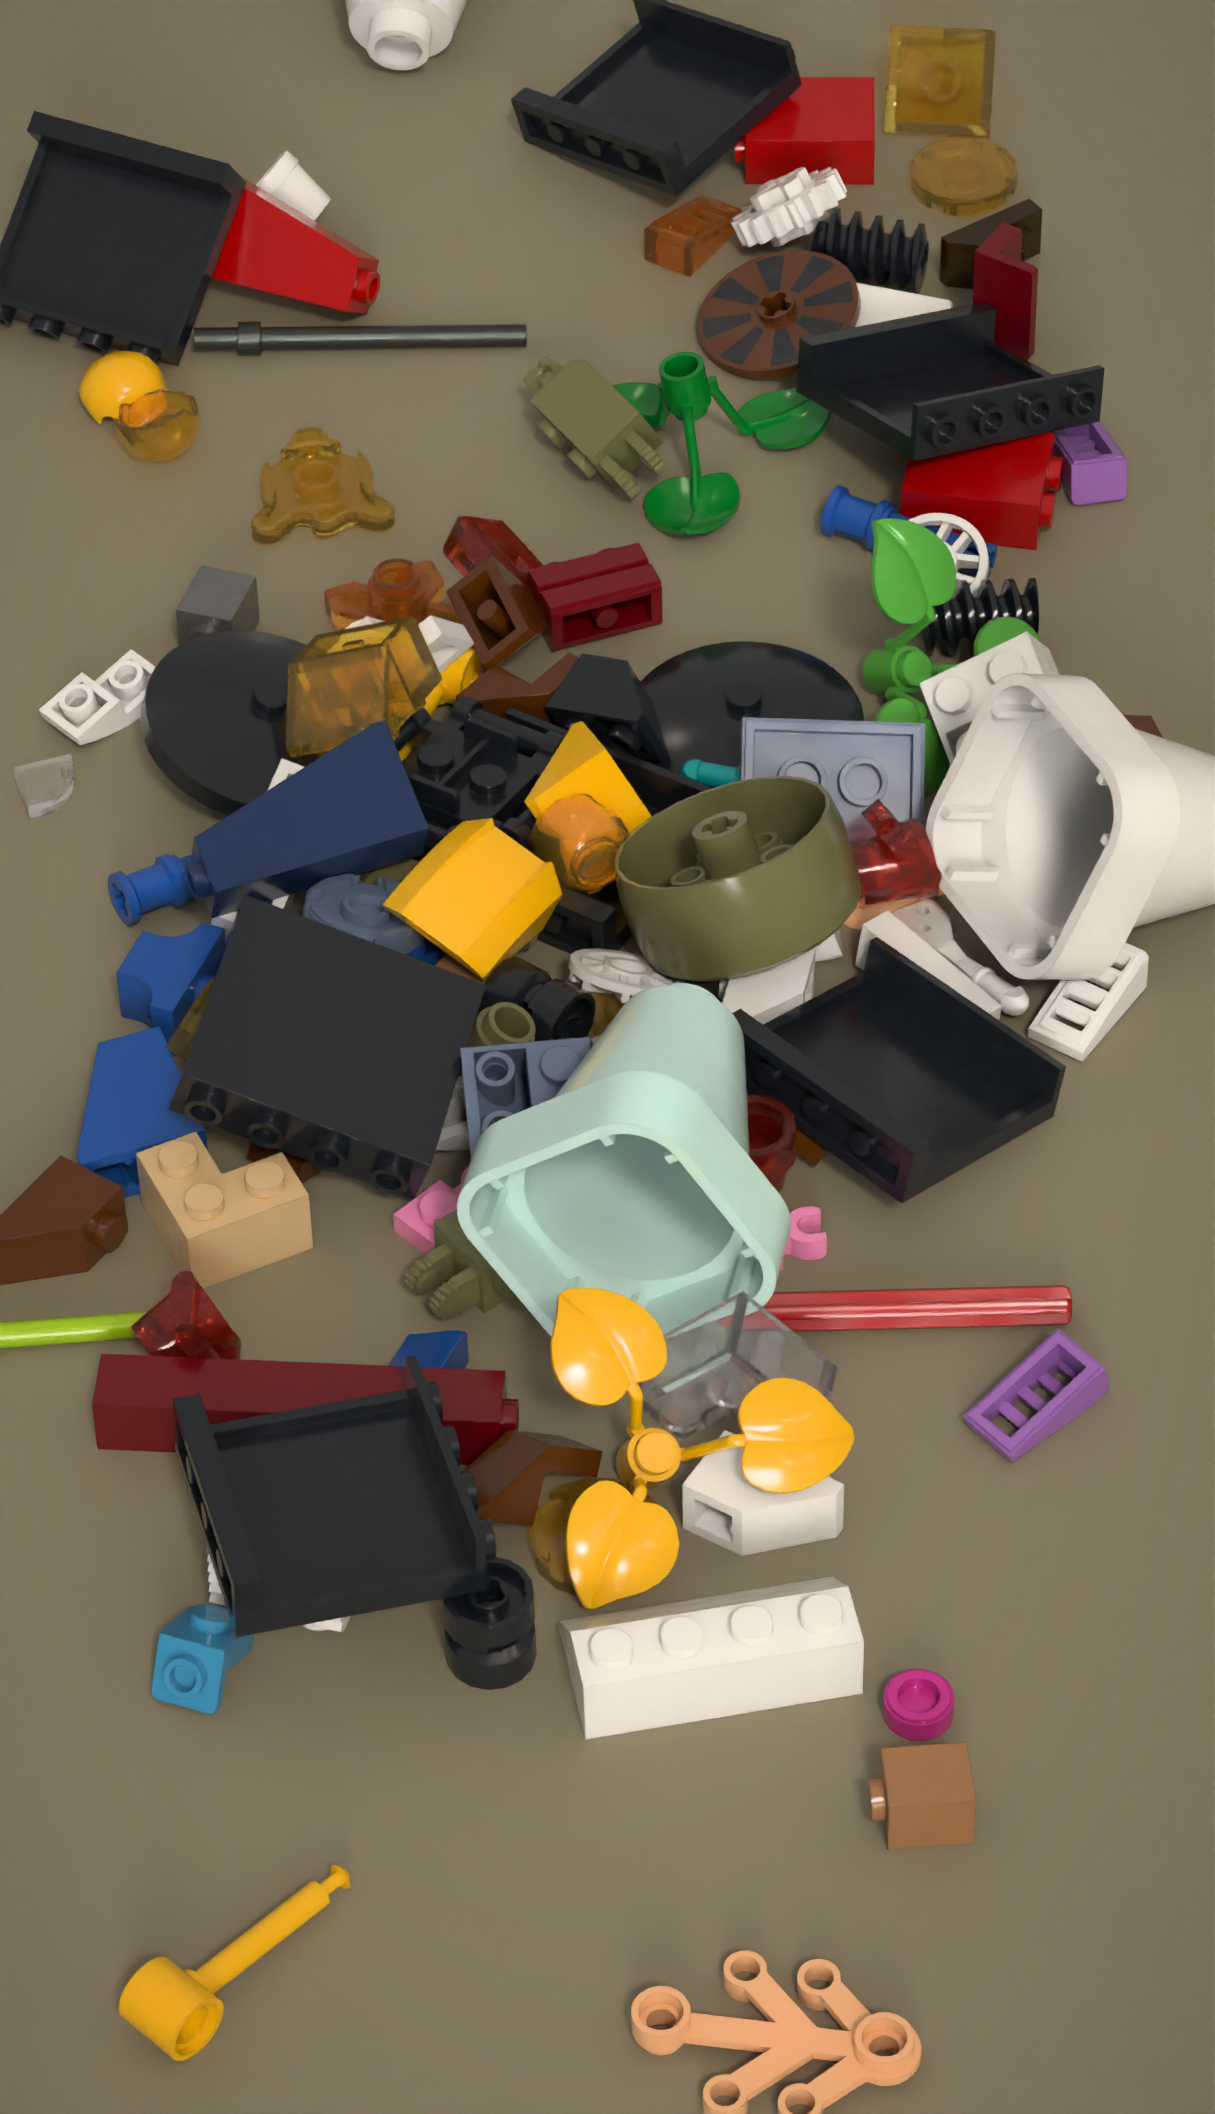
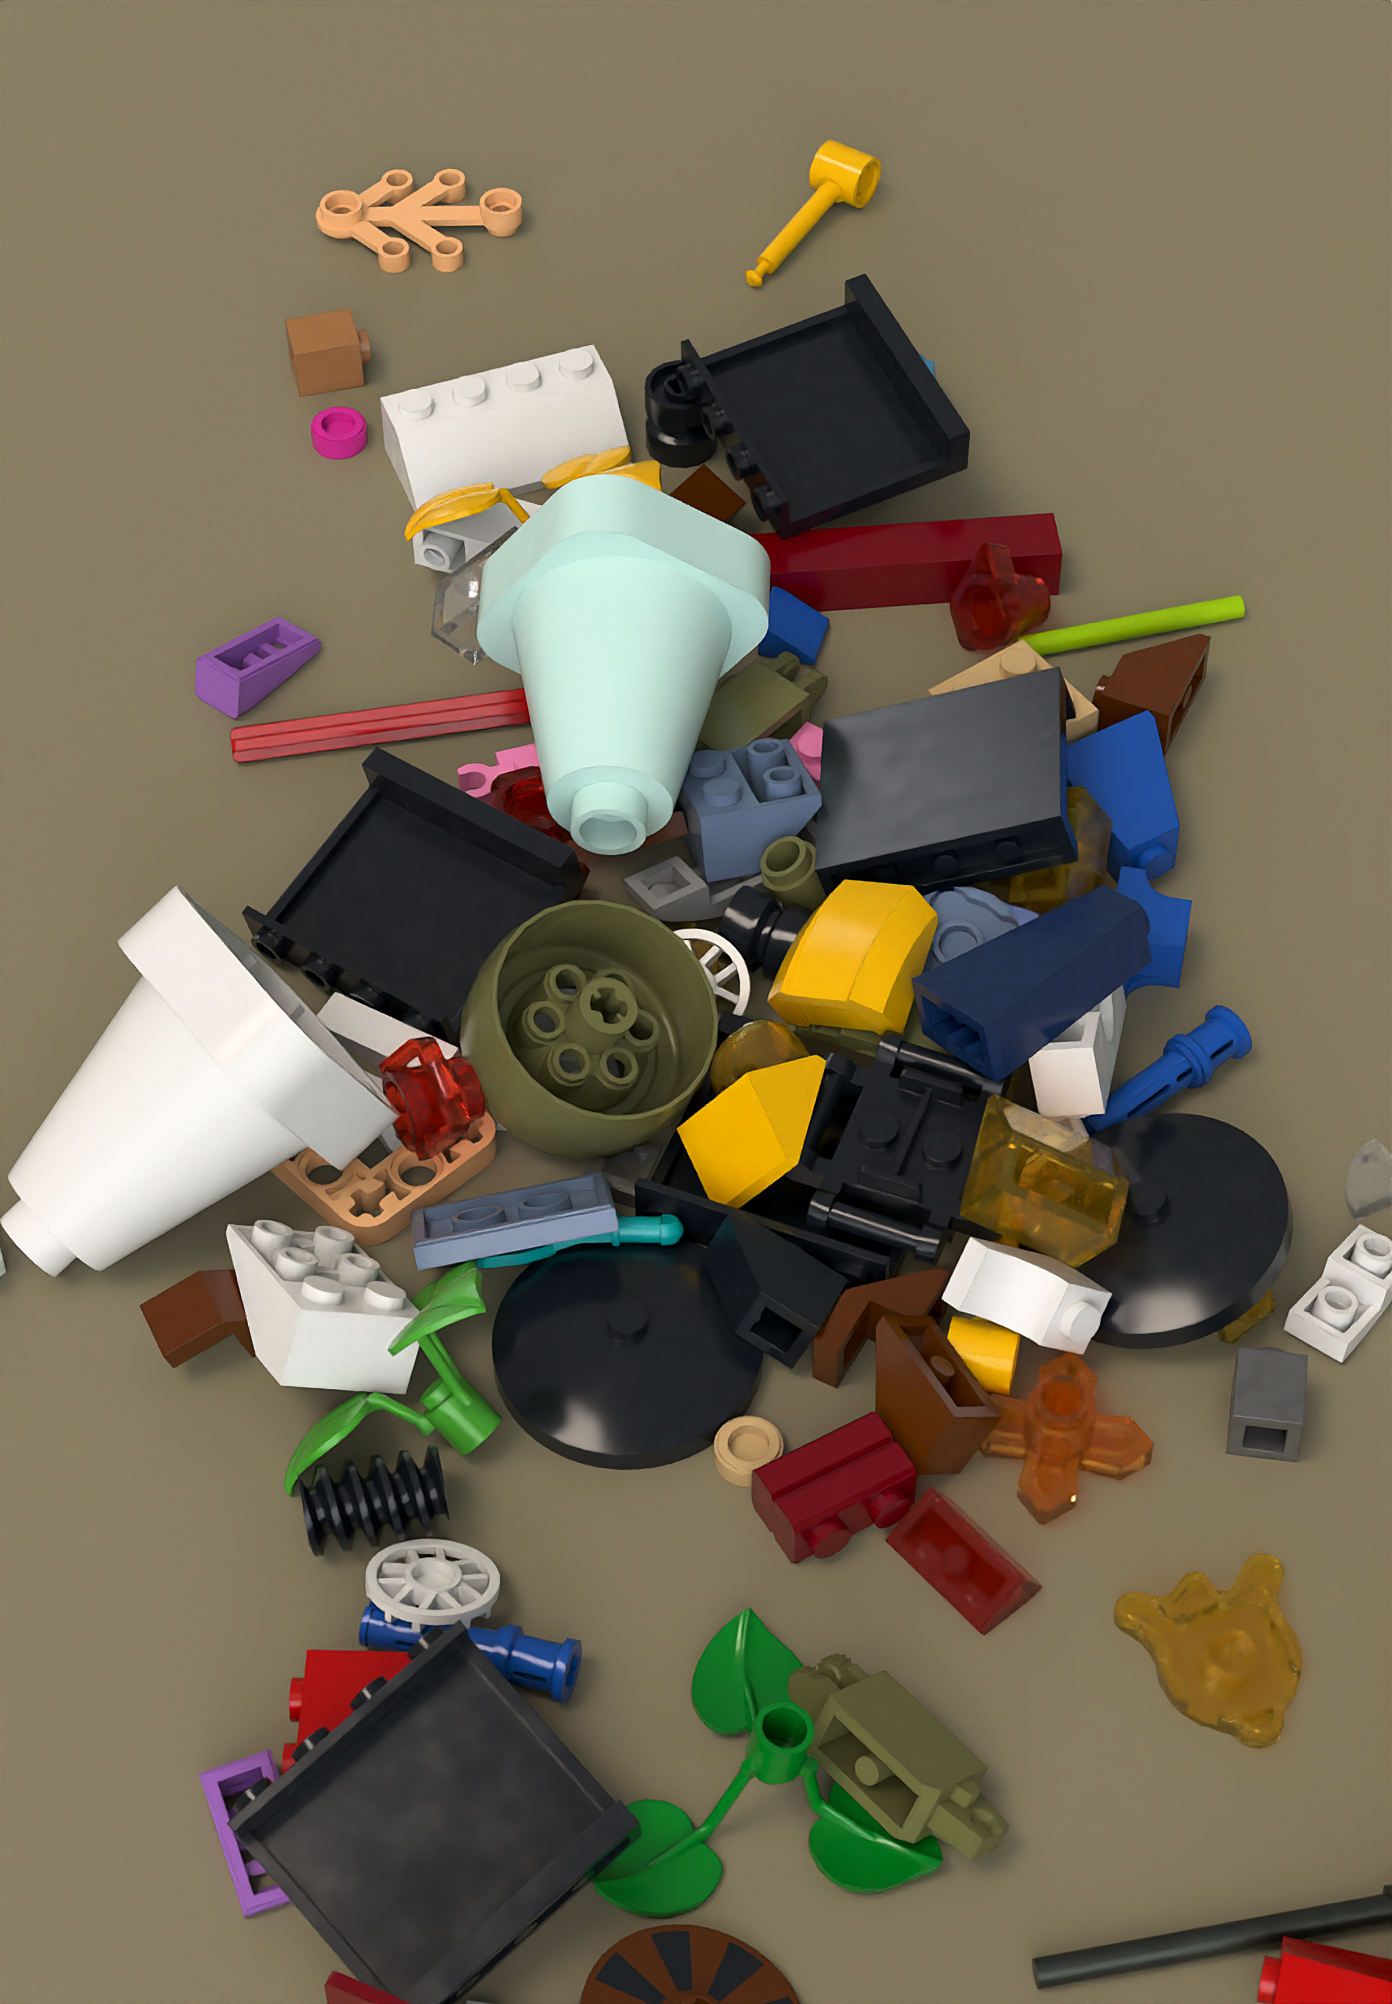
camera: 170 degrees right, 5 degrees up
(653, 645) = (745, 1446): none -> tan tile

